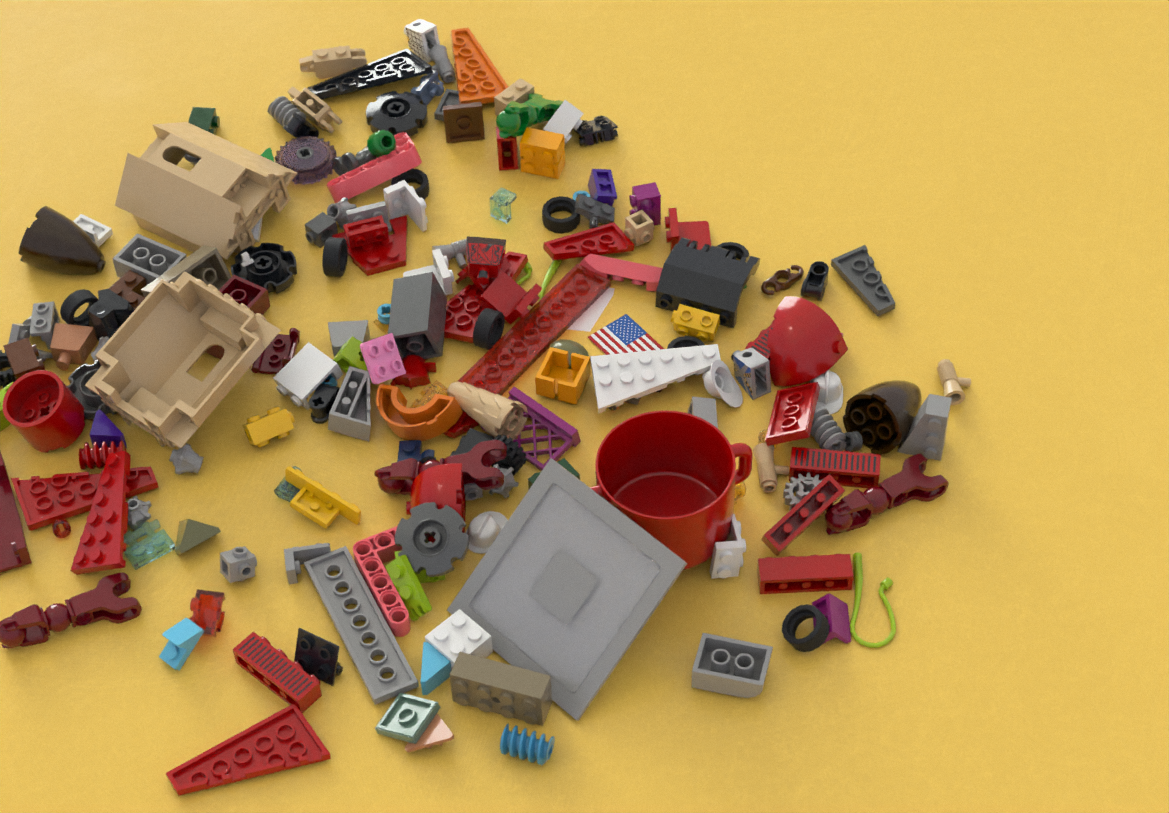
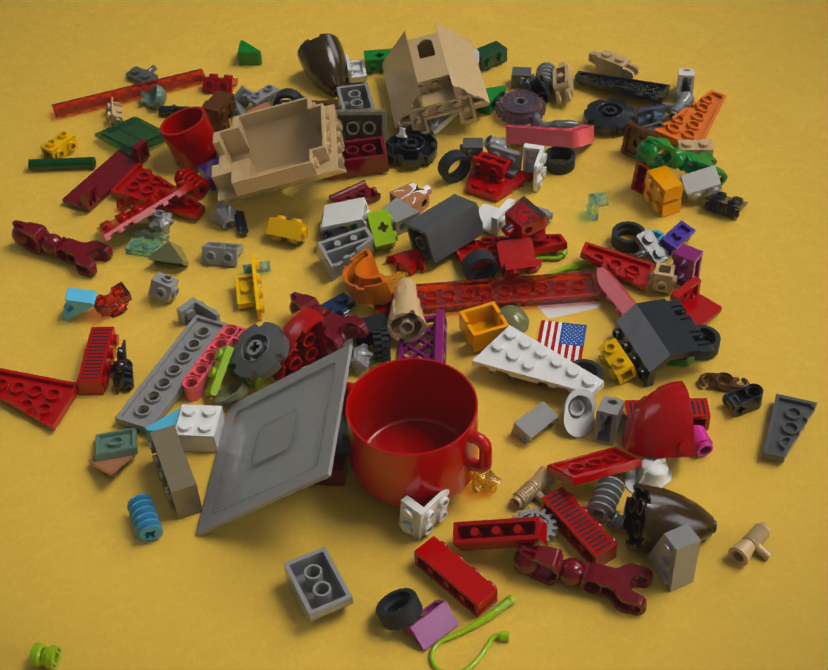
camera: 50 degrees right, 5 degrees down
(98, 203) = (374, 58): none -> green brick
(210, 456) = (241, 223): none -> black axle
(236, 495) = (221, 253): none -> light grey bracket
(264, 129) = (517, 76): none -> dark grey brick
(332, 310) = (413, 195): none -> nougat torso
(381, 143) = (564, 119): green head -> none
(382, 358) = (383, 232): bright pink bracket -> none
(441, 596) = (231, 393): none -> olive hat

